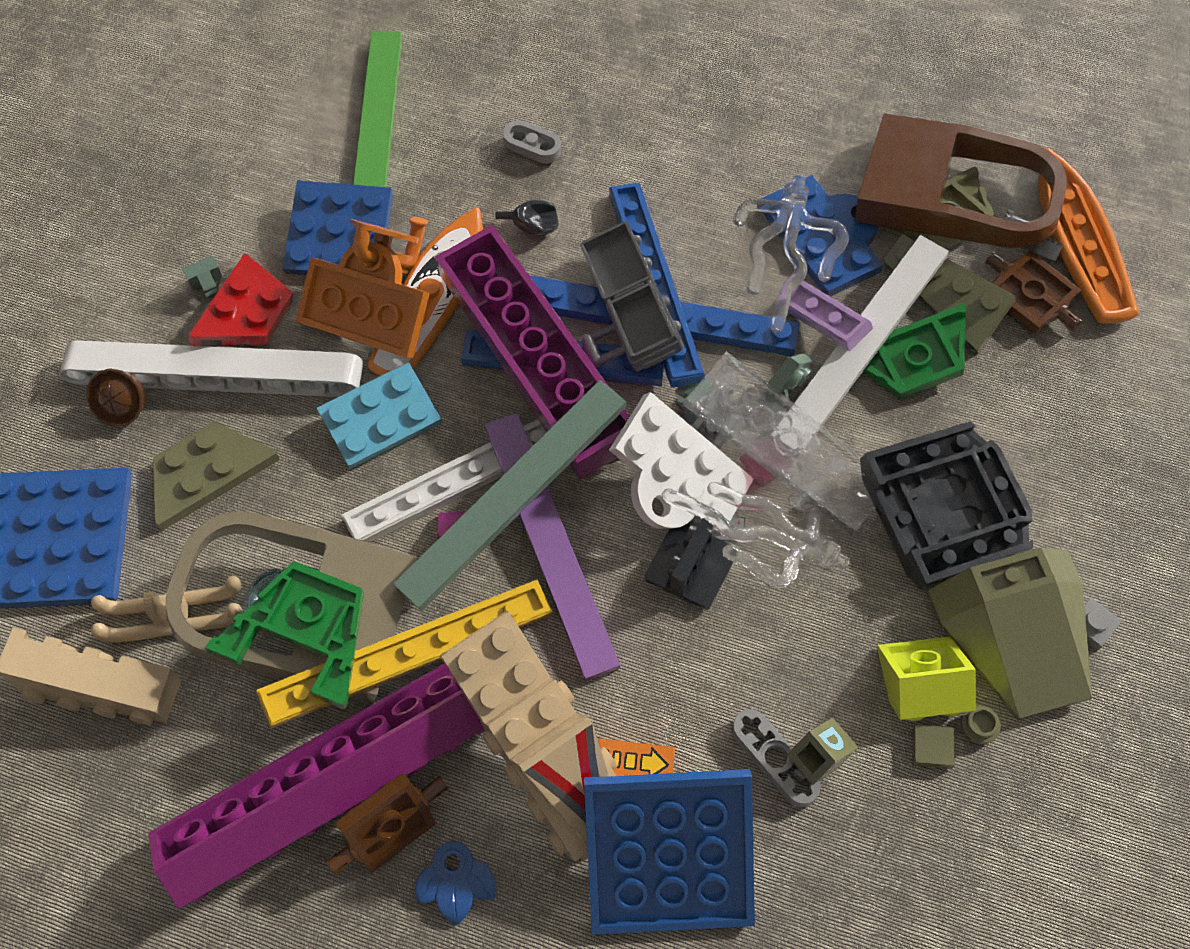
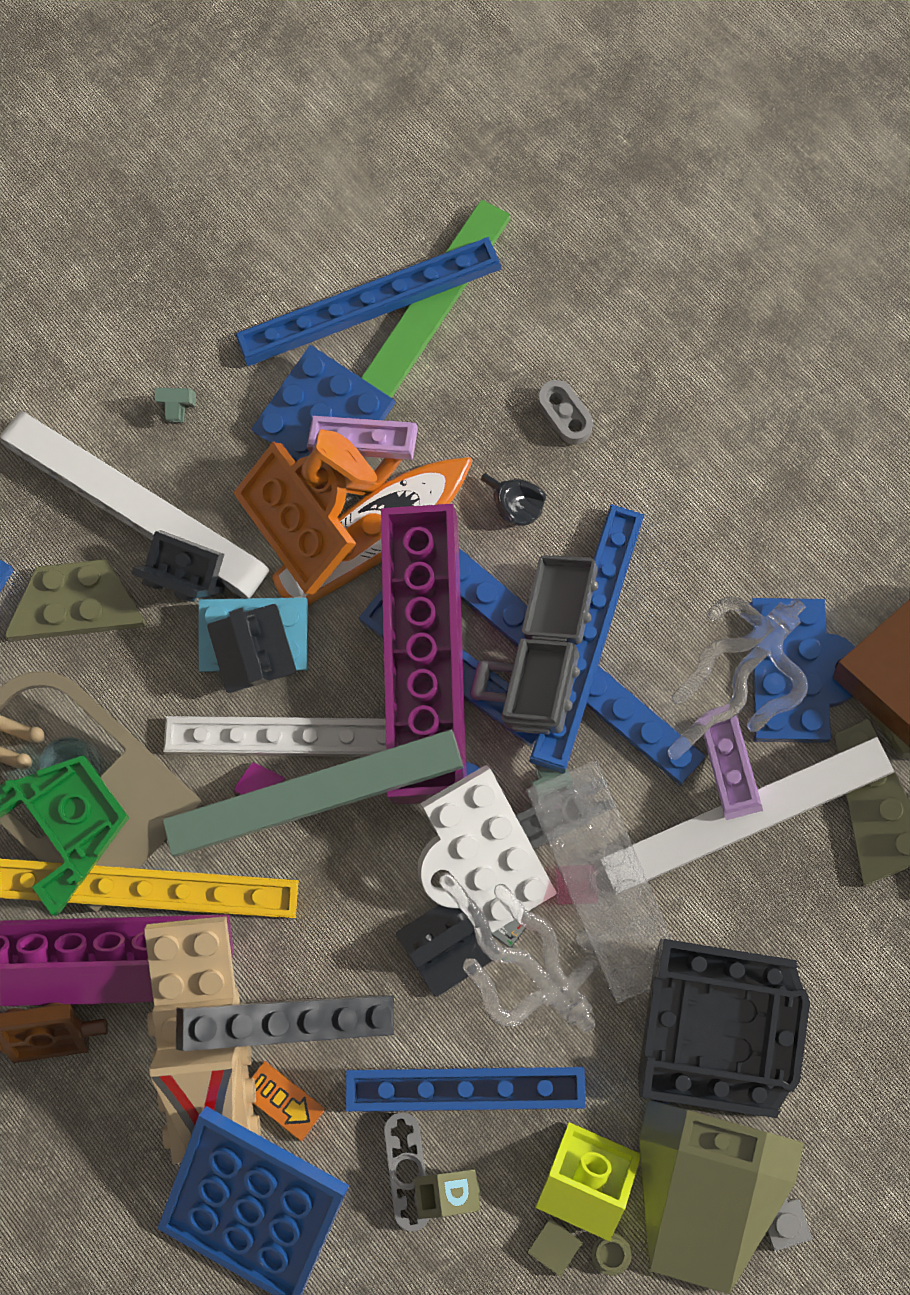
camera: 35 degrees right, 10 degrees up
(115, 397) = (33, 490): reddish brown hat -> none
(244, 308) = (192, 456): red wing -> none
(288, 384) = (182, 567): none -> black bracket
(321, 138) = (368, 301): none -> blue tile
(386, 418) = (251, 647): none -> black bracket
(397, 216) = (370, 437): none -> lavender tile
(456, 887) = (73, 1119): blue plate -> none
(557, 560) = (328, 864): medium lavender tile -> none
(601, 679) = (283, 1022): none -> plate
(782, 660) = (465, 1089): none -> blue brick
(791, 374) = (652, 814): sand green hinge -> none
(921, 354) = (804, 858): green wing -> none

